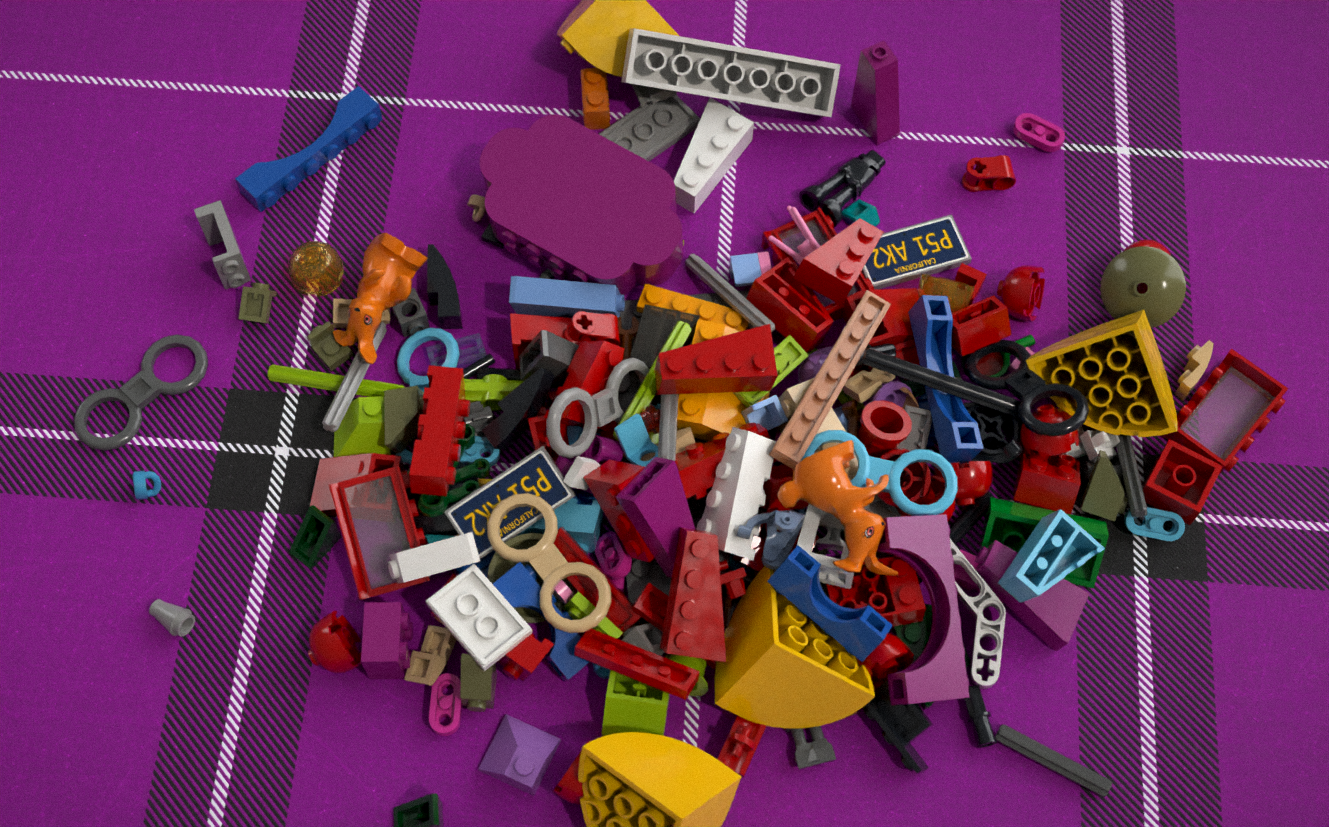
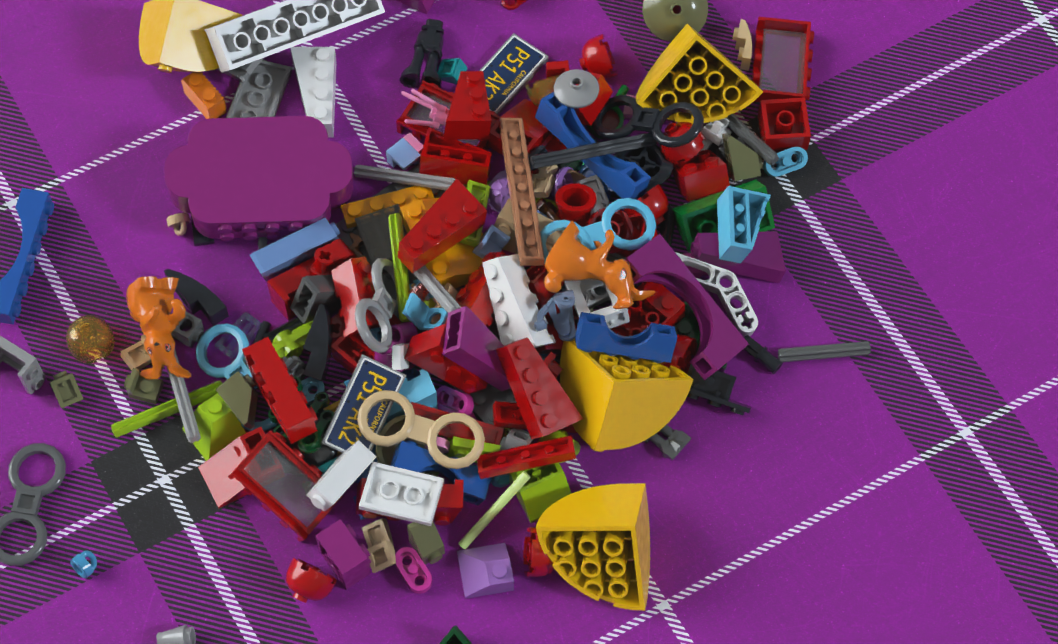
camera: 35 degrees left, 0 degrees up
(315, 537) = (237, 520): dark green slope -> none
(569, 697) = (494, 510): none -> yellowish green bar
(741, 745) = (626, 465): red hips -> none
(966, 315) = (576, 95): none -> light grey dish

